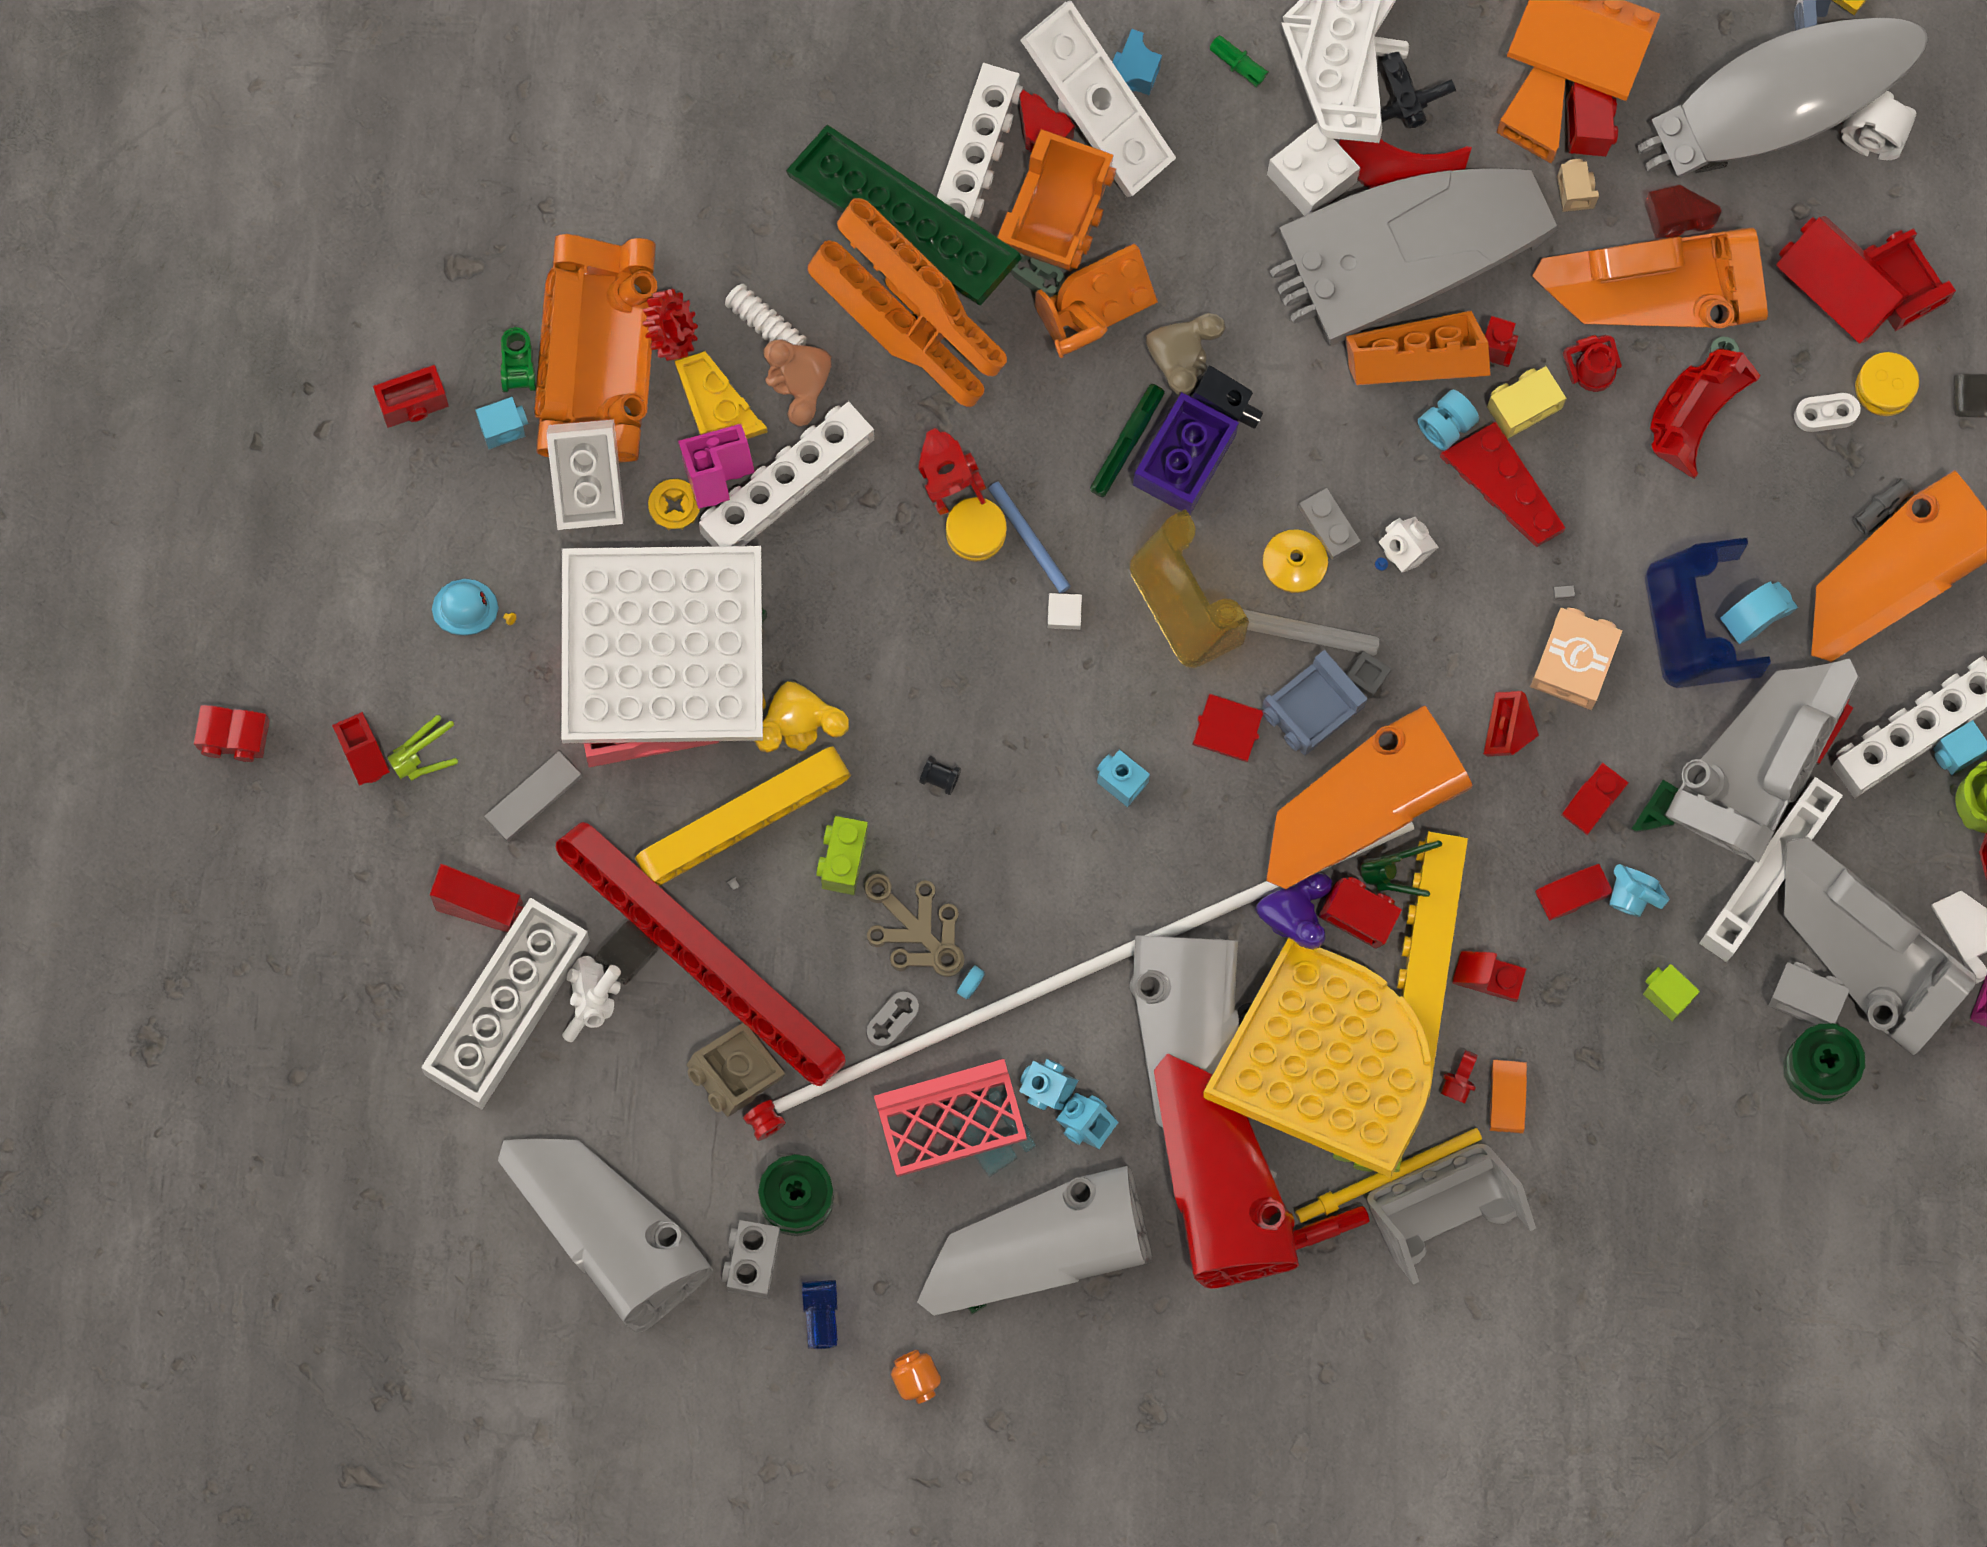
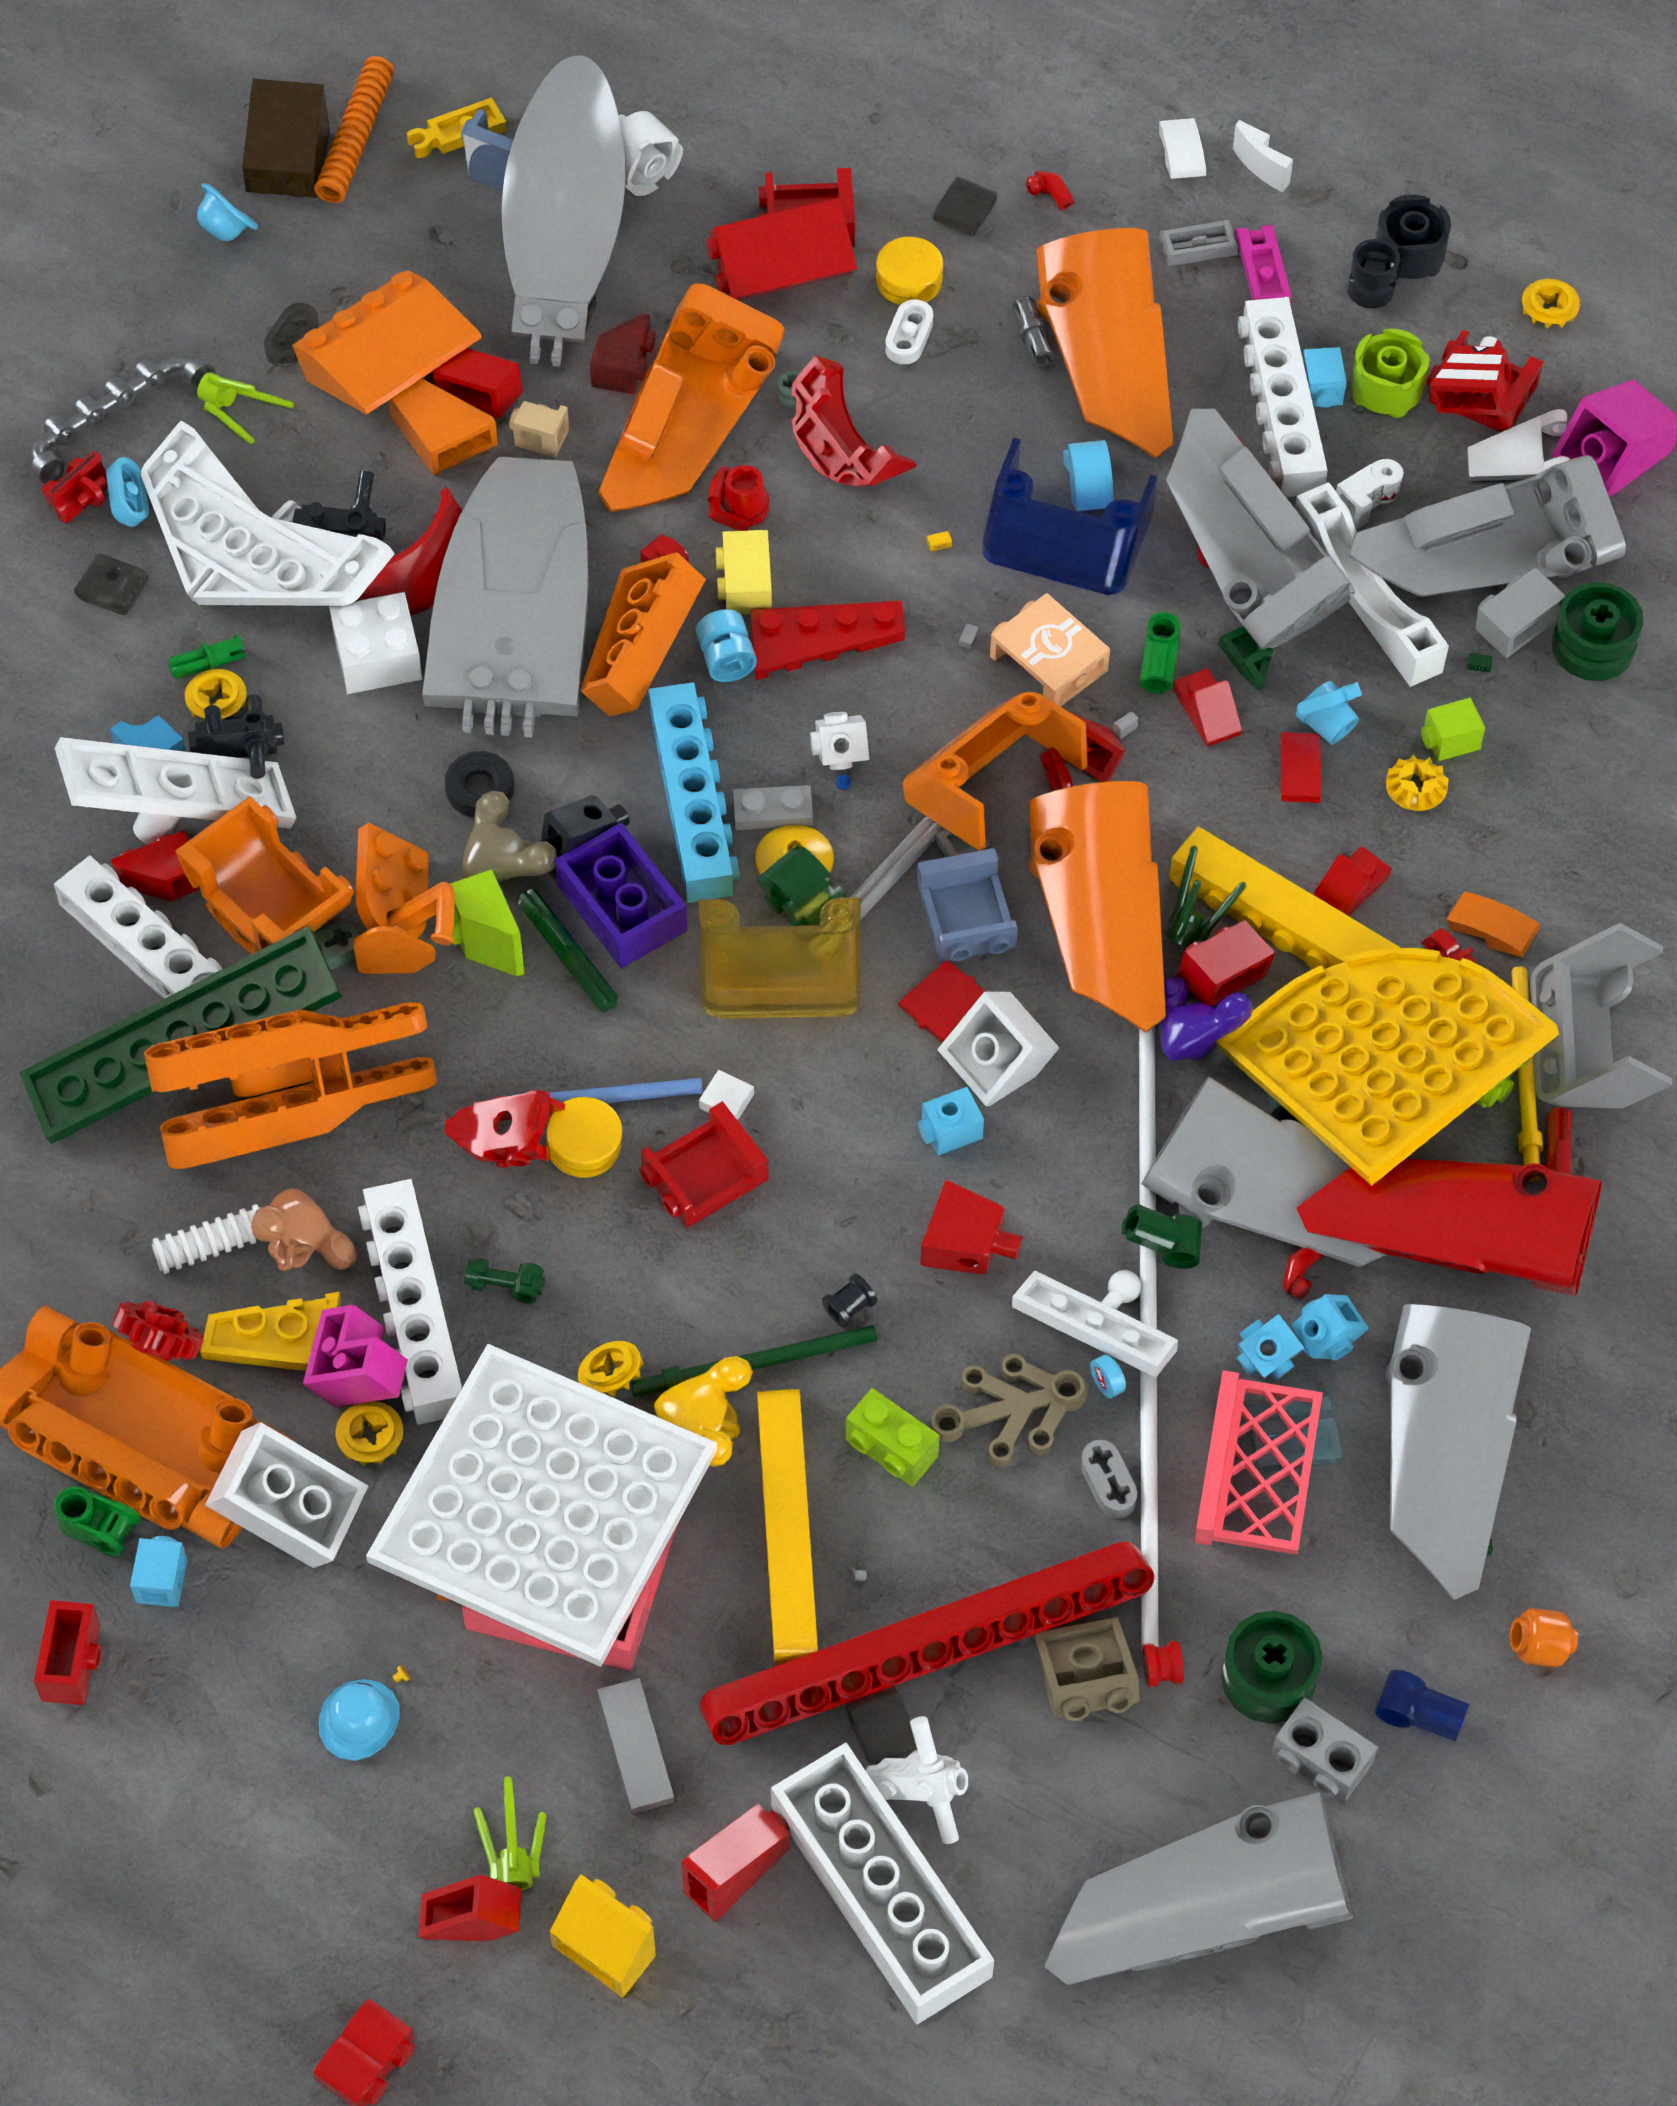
camera: 60 degrees left, 15 degrees down
(380, 842) = (604, 1935): none -> yellow slope
(803, 629) = (599, 1362): none -> yellow gear
(820, 687) = (672, 1376): none -> dark green bar
(841, 548) = (525, 1284): none -> dark green bar
(995, 623) = (705, 1167): none -> red panel
(1009, 954) = (1098, 1322): none -> white plate
(1036, 830) = (966, 1232): none -> red torso
(1106, 978) = (1172, 1236): none -> dark green piece
(1110, 370) = (486, 924): none -> lime slope
(1129, 1077) = (1296, 1268): none -> red arm
(1183, 127) = (243, 737): none -> black piece
(1203, 781) = (997, 1047): none -> white slope
(1218, 74) = (207, 685): none -> yellow gear
(1244, 290) = (476, 763): none -> black tyre
(1256, 578) = (798, 886): none -> dark green brick
(1365, 406) = (702, 876): none -> medium azure brick
(1408, 628) = (936, 782): none -> orange windscreen
(1467, 719) = (1056, 774): none -> red axle
(1543, 745) = (1125, 725): none -> light grey piece
(1608, 1001) = (1405, 792): none -> yellow gear
(1617, 741) = (1160, 653): none -> green piece
(1641, 529) = (939, 541): none -> yellow piece
(1753, 987) = (1480, 662): none -> dark green piece
(1870, 829) = (1370, 487): none -> white leg

